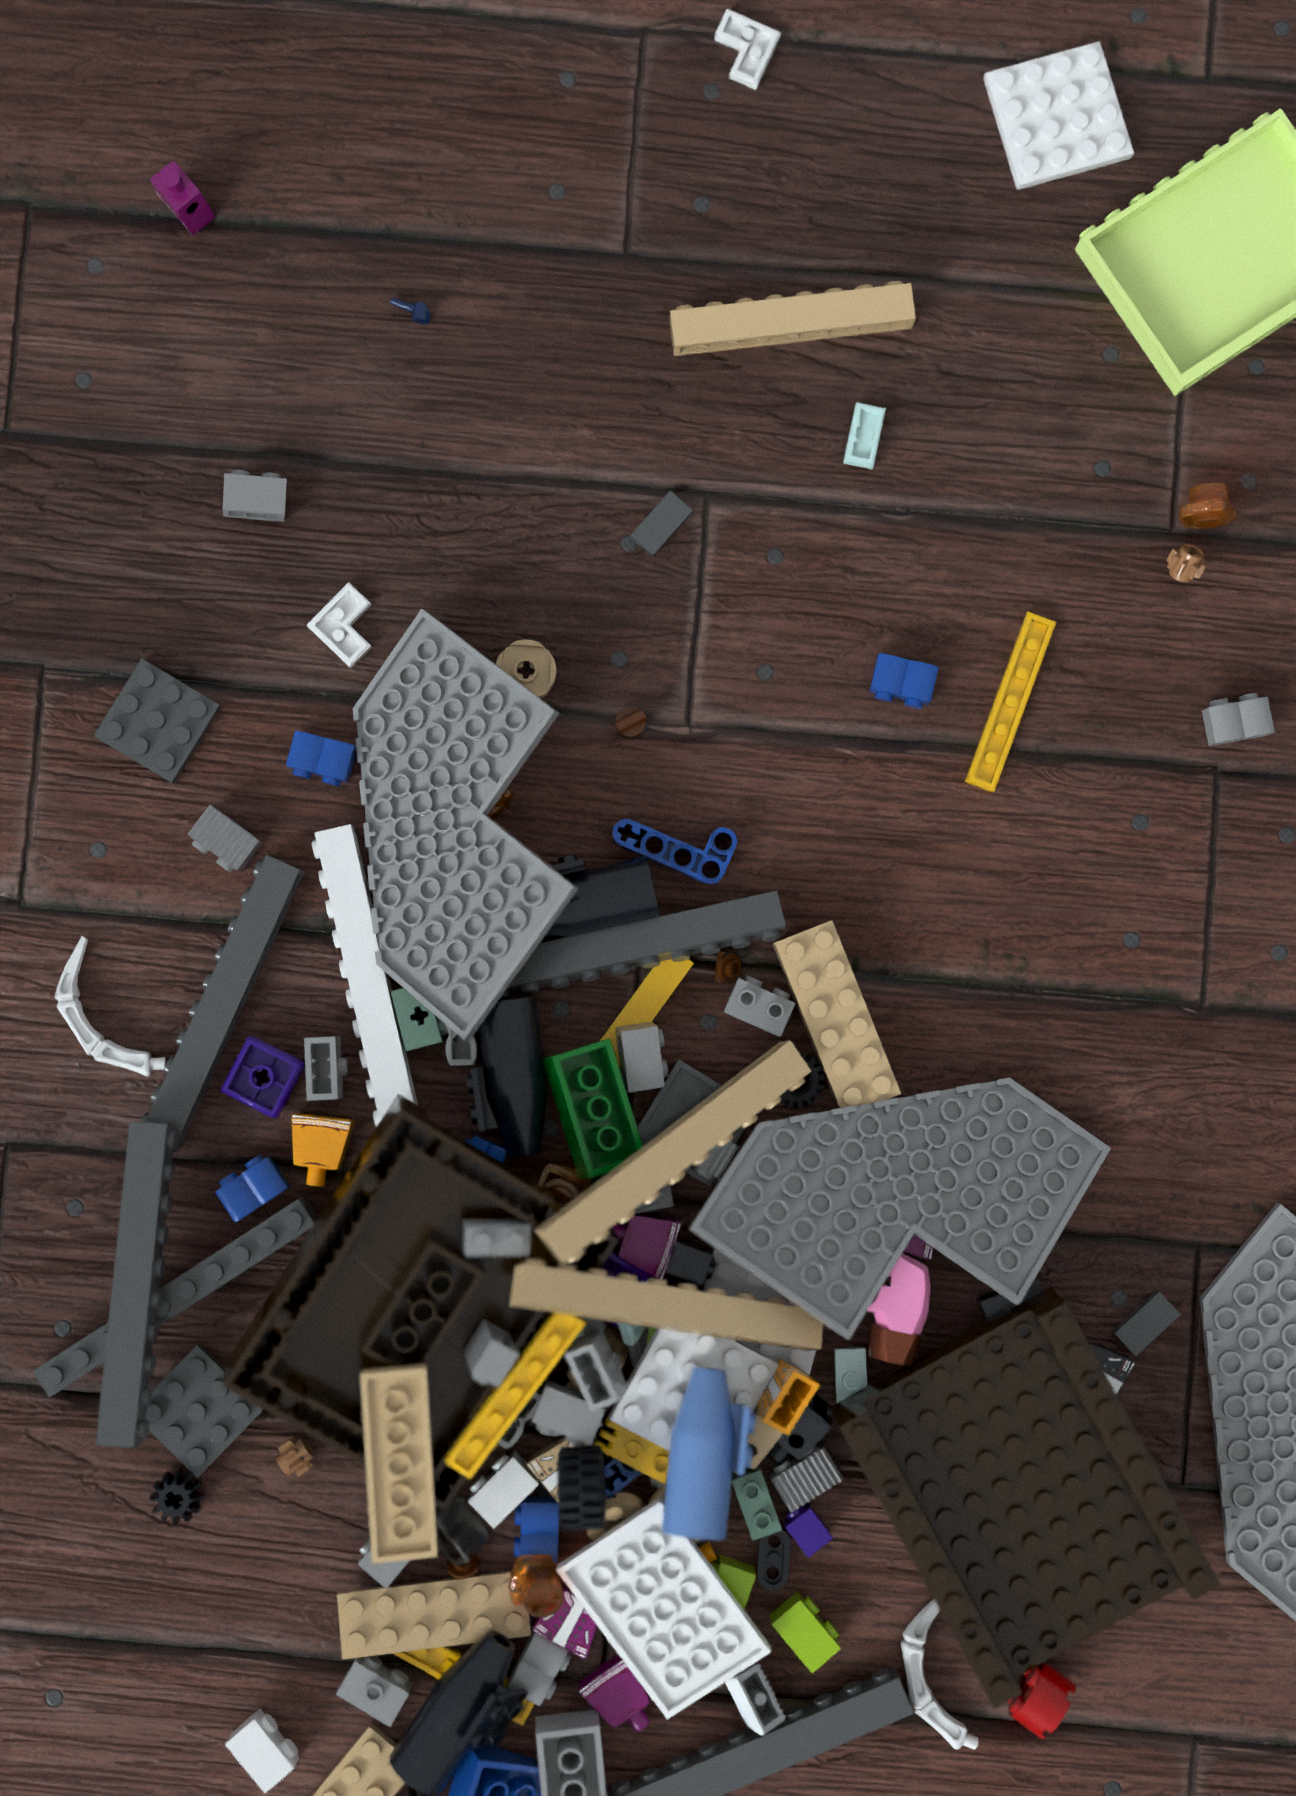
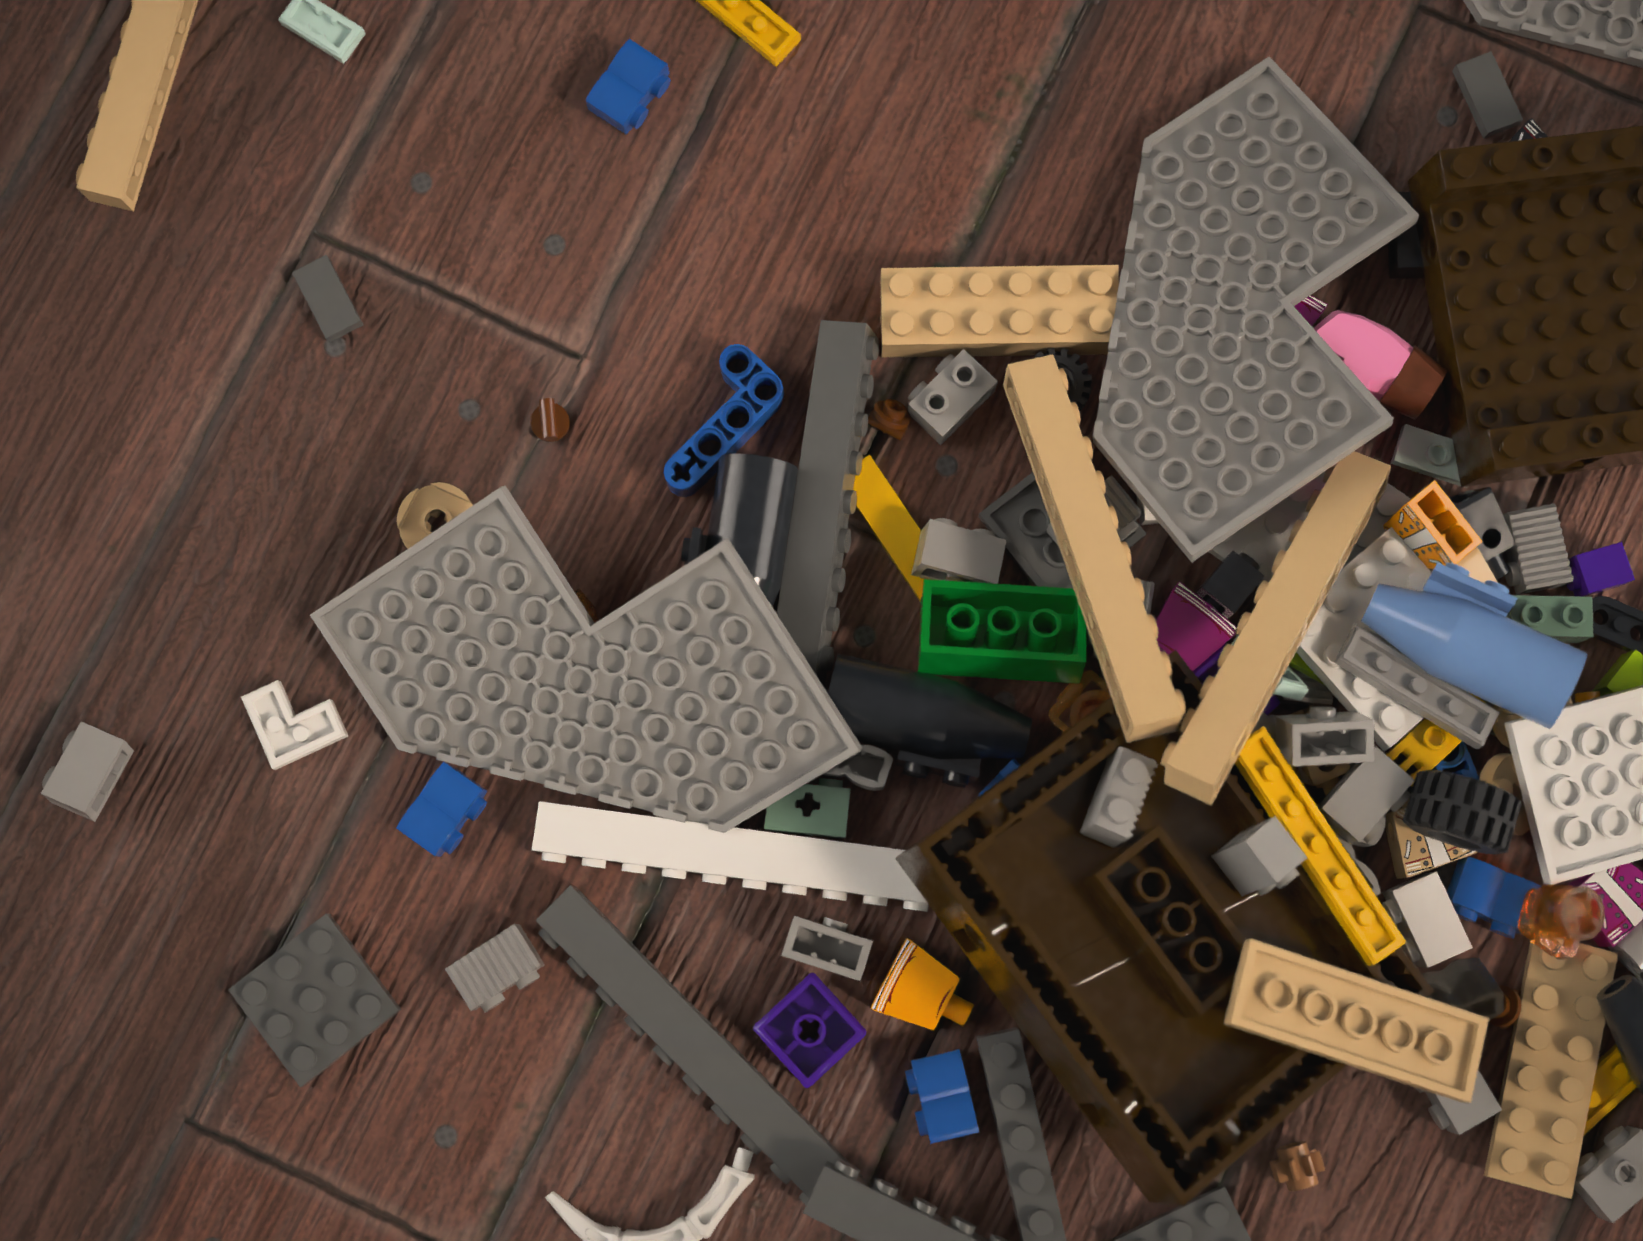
camera: 60 degrees left, 5 degrees down
(662, 1409) = (1416, 689): none -> light grey tile

